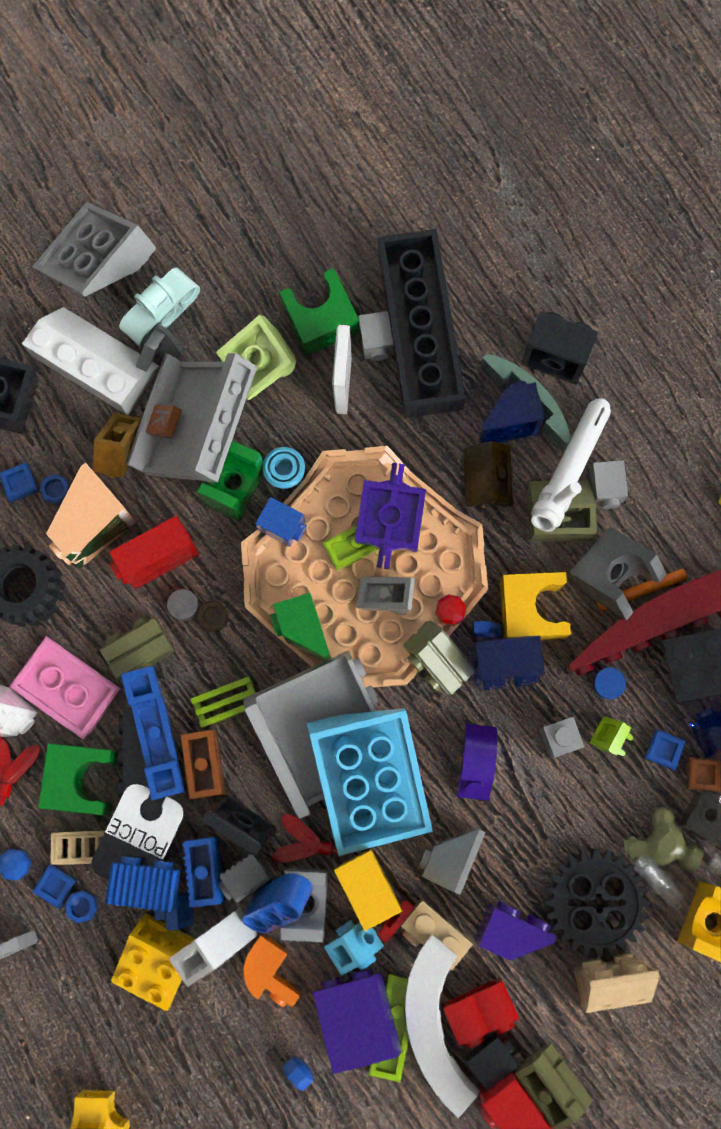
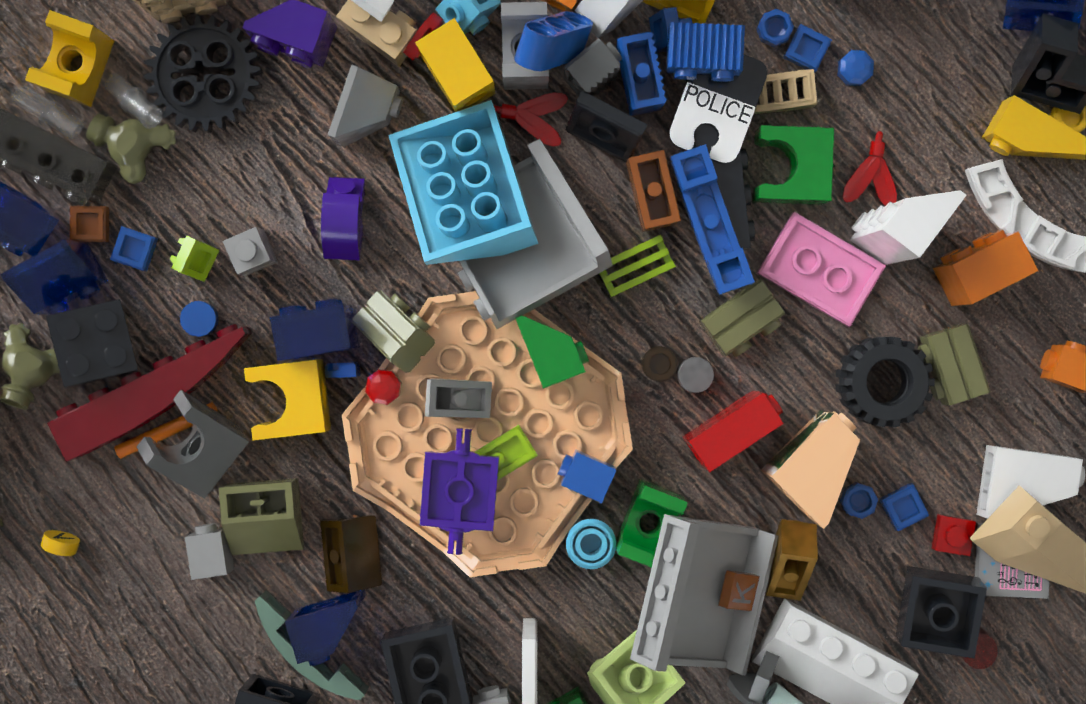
camera: 170 degrees right, 10 degrees up
(563, 486) = (262, 532): white cylinder -> none

